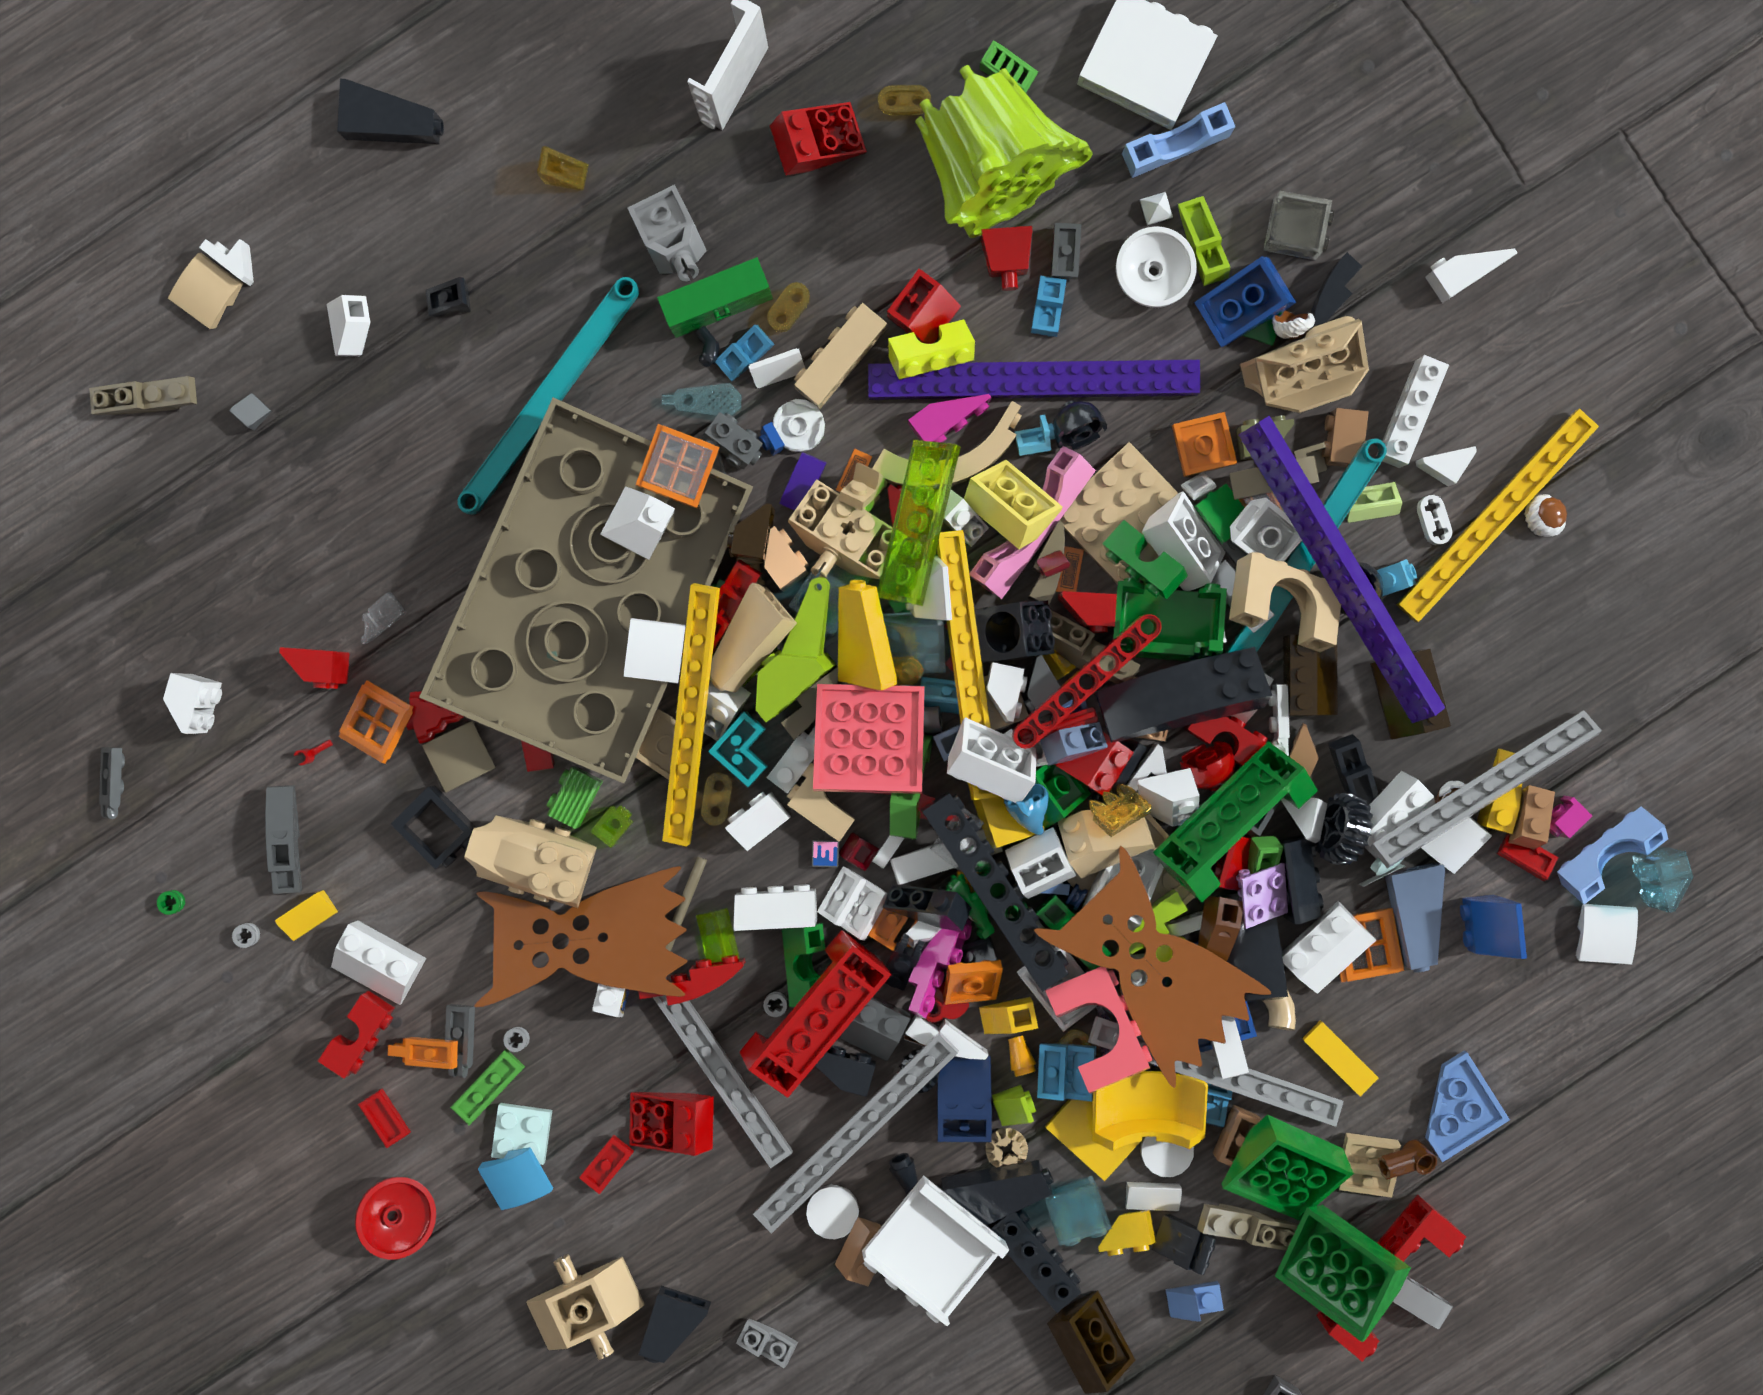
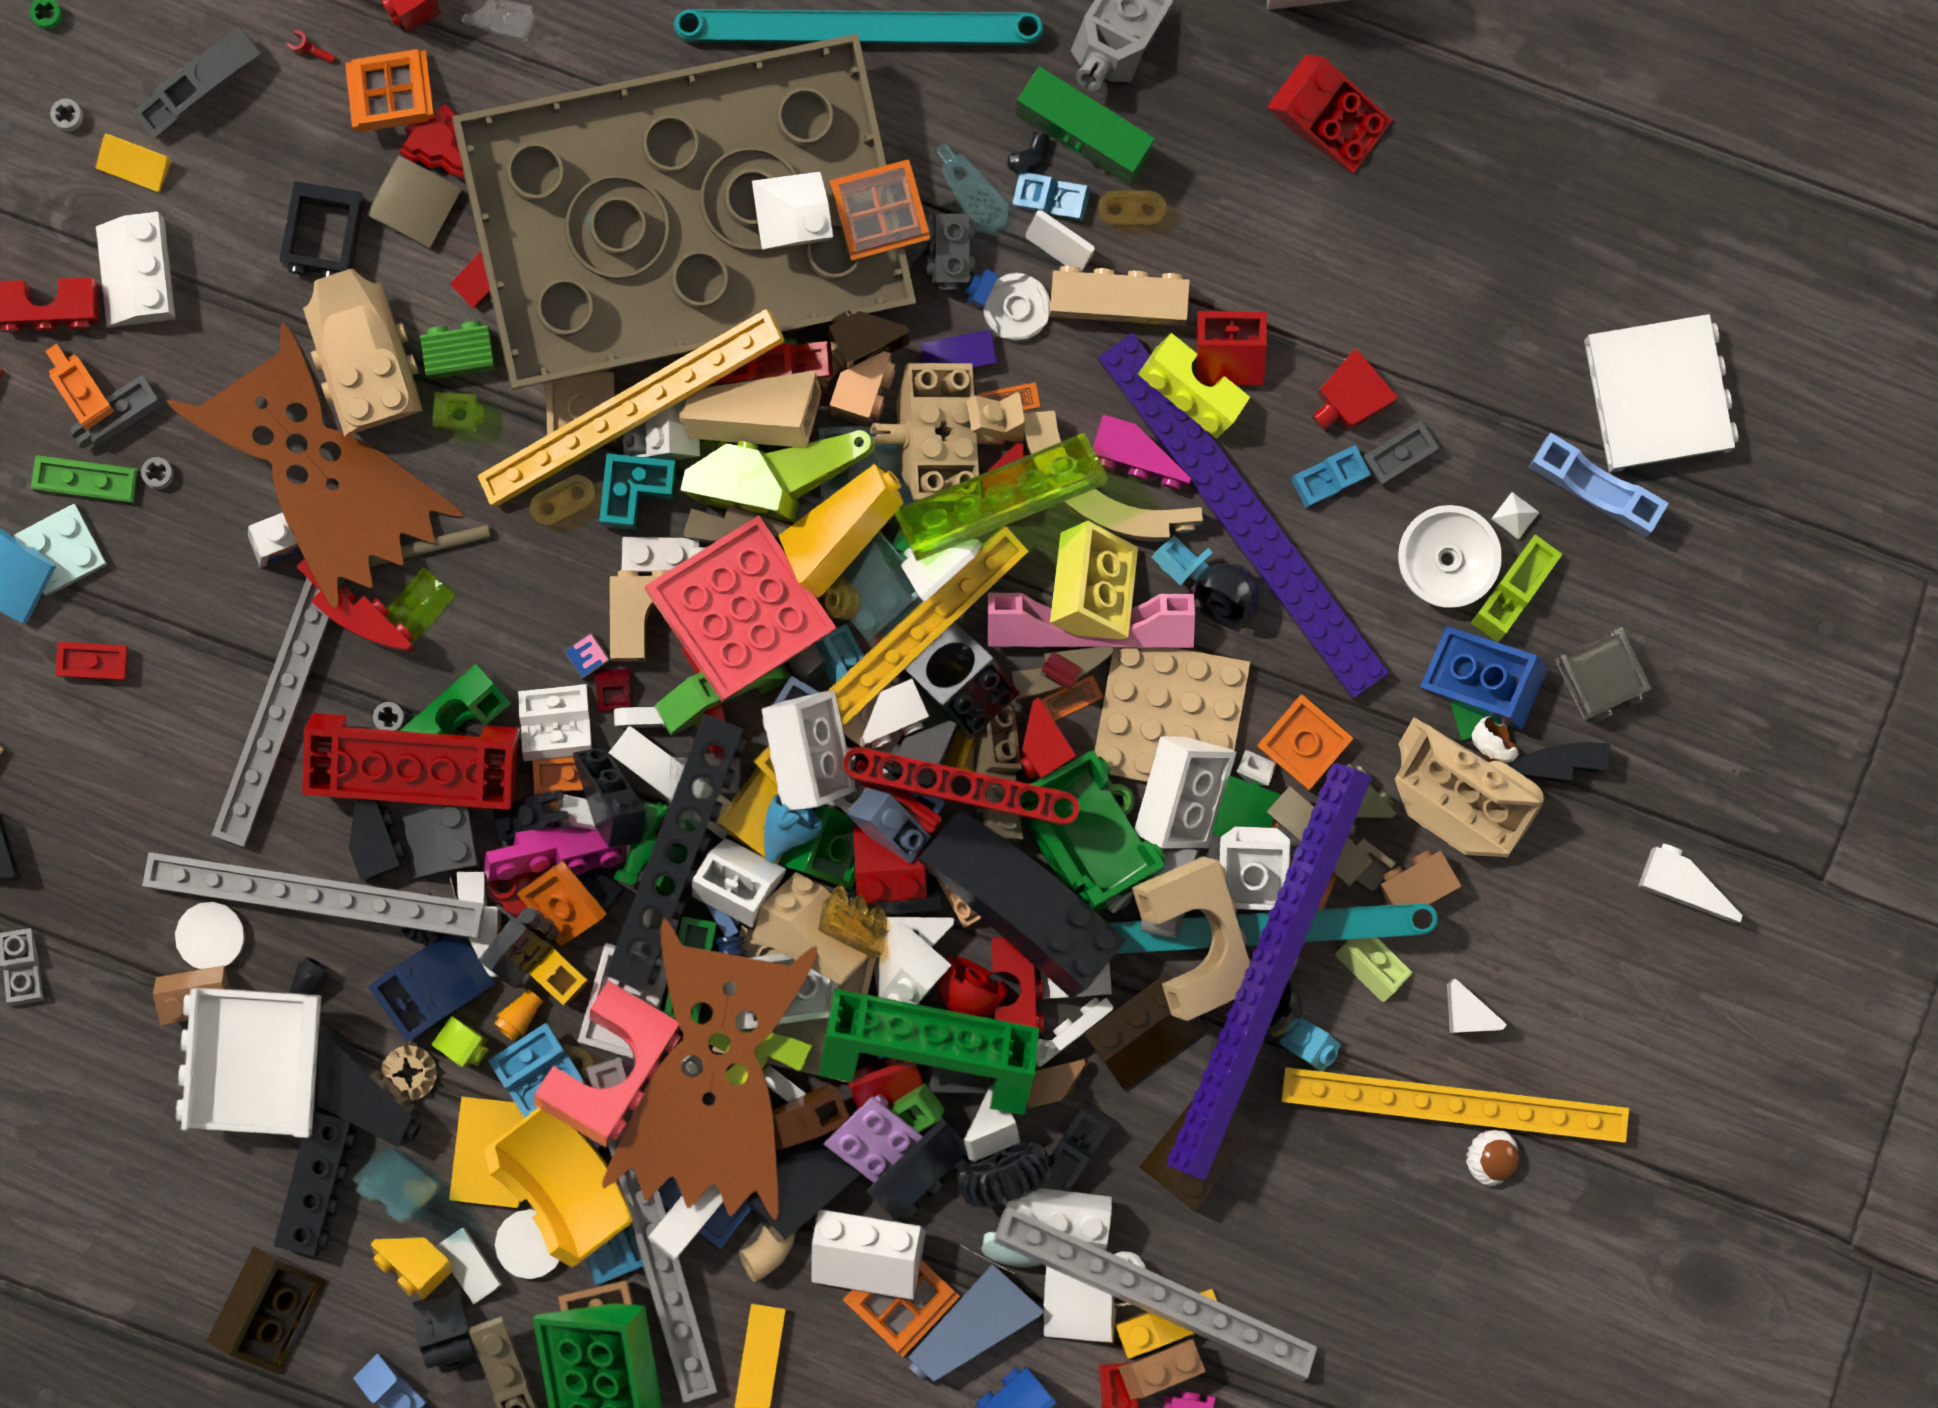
camera: 55 degrees right, 5 degrees down
(654, 650) = (672, 320): white slope -> none
(672, 1122) = (186, 697): red slope -> none
(758, 821) = (571, 558): white slope -> none
(775, 908) = (492, 642): white slope -> none
(904, 99) = (1436, 173): clear yellow plate -> none
(962, 517) = (1042, 543): white slope -> none
(980, 1029) = (519, 945): none -> black piece
(995, 150) = (1439, 303): lime piece -> none
(1013, 60) = (1531, 231): bright green slope -> none
(1160, 575) = (1134, 735): green arch -> none
(1413, 410) = (1496, 934): white brick -> none
(1440, 517) = (1395, 1038): white beam -> none

